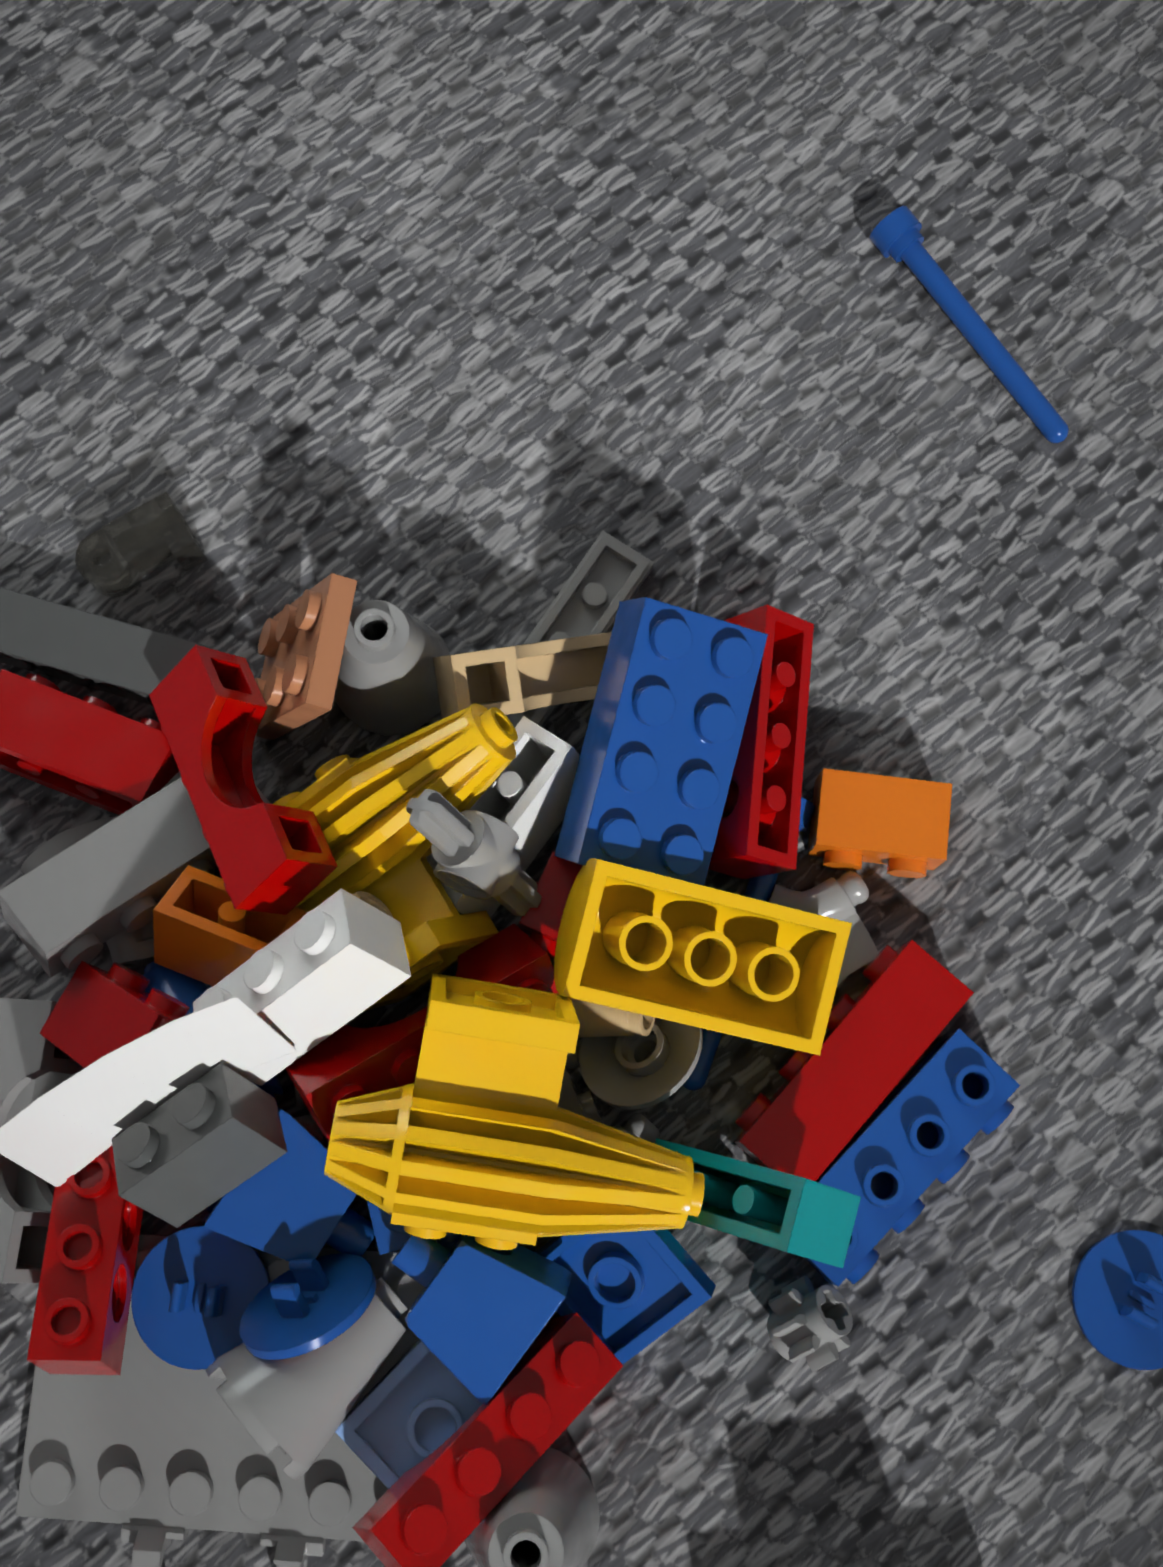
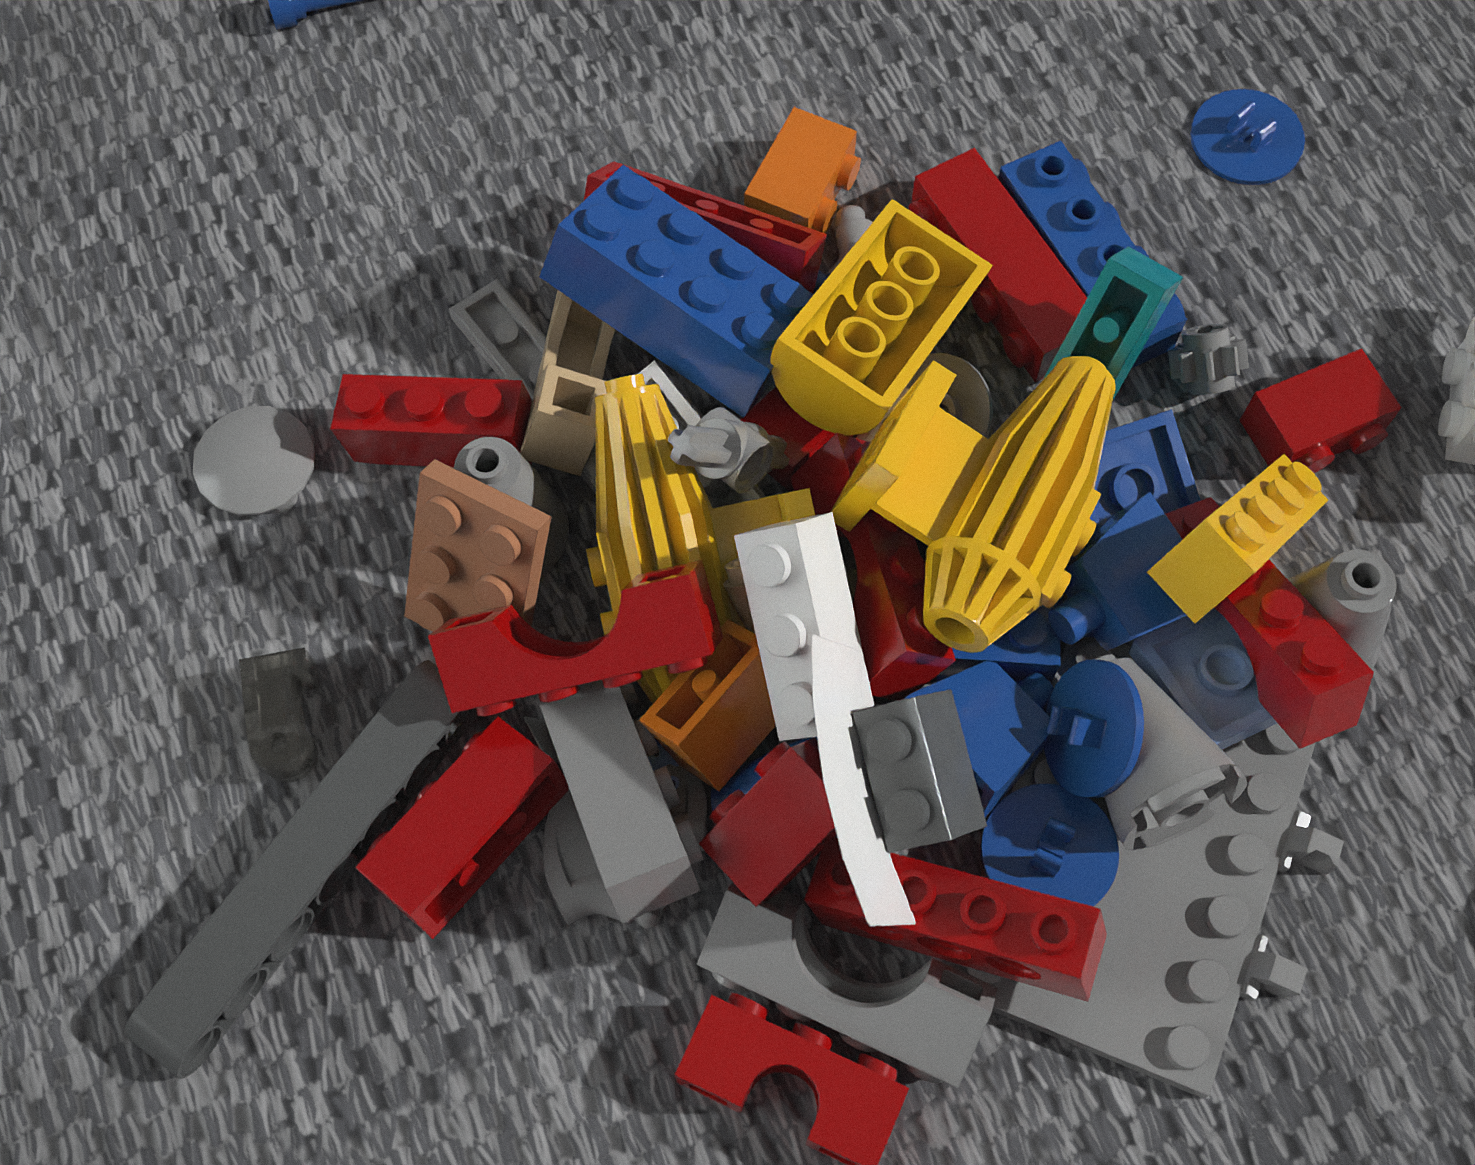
camera: 70 degrees left, 10 degrees down
(384, 422) = (254, 461): none -> light grey dish
(460, 560) = (425, 417): none -> red brick
(517, 1401) = (1239, 537): none -> yellow arch
(786, 1467) = (1322, 413): none -> red brick

